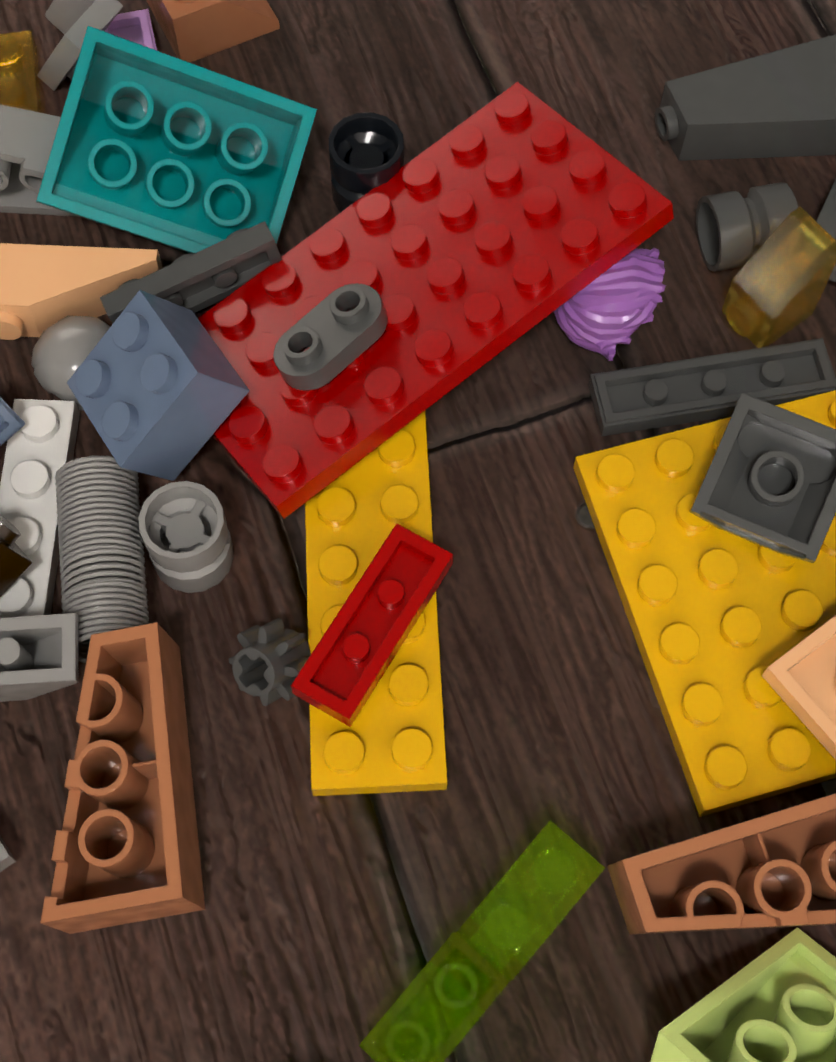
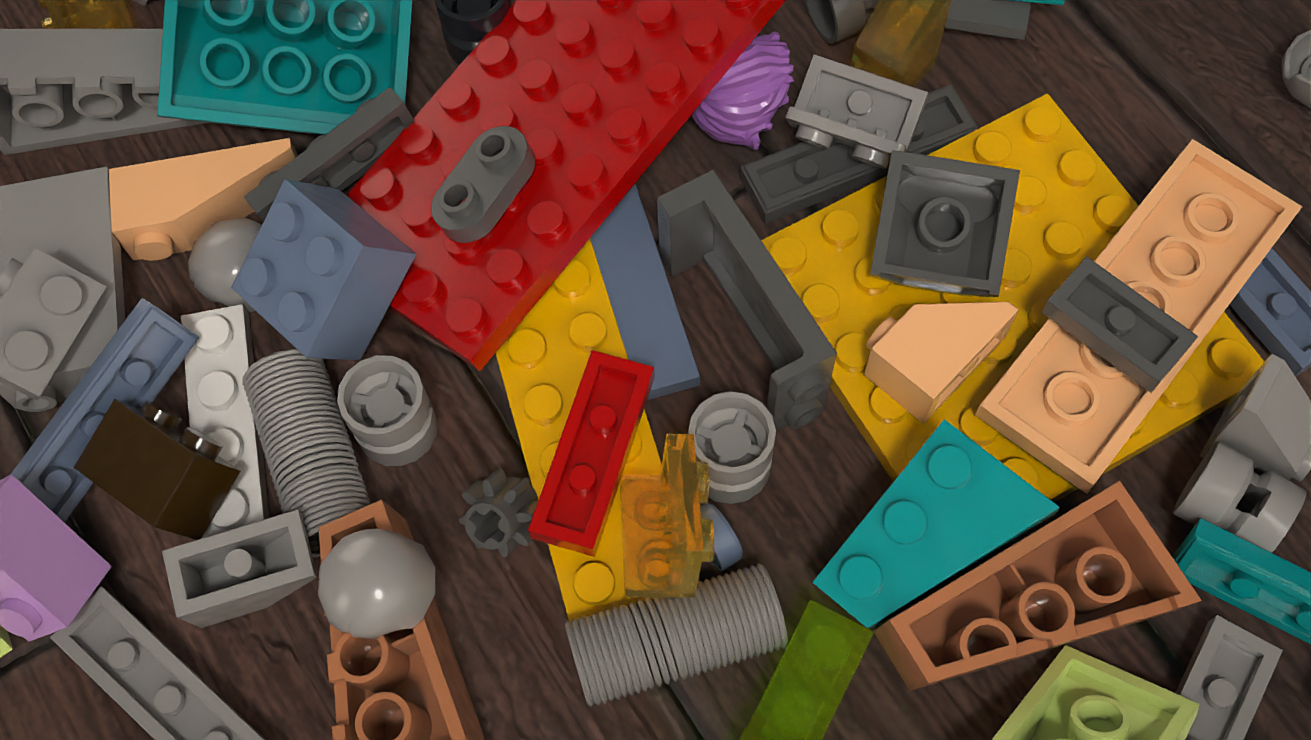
camera: 10 degrees left, 0 degrees up
(131, 702) = (376, 583): none -> light grey hair
(411, 822) = (721, 625): none -> light grey piece
(421, 712) = (664, 526): none -> clear yellow bracket
(462, 482) = (643, 297): none -> sand blue tile
(473, 734) = (726, 544): none -> sand blue tile
(510, 650) = (737, 442): none -> light grey wheel
(538, 425) = (706, 226): none -> dark grey panel
(685, 777) = (930, 526): none -> teal wedge
(718, 344) = (856, 111): none -> light grey bracket
(736, 602) = (934, 351): none -> light nougat slope

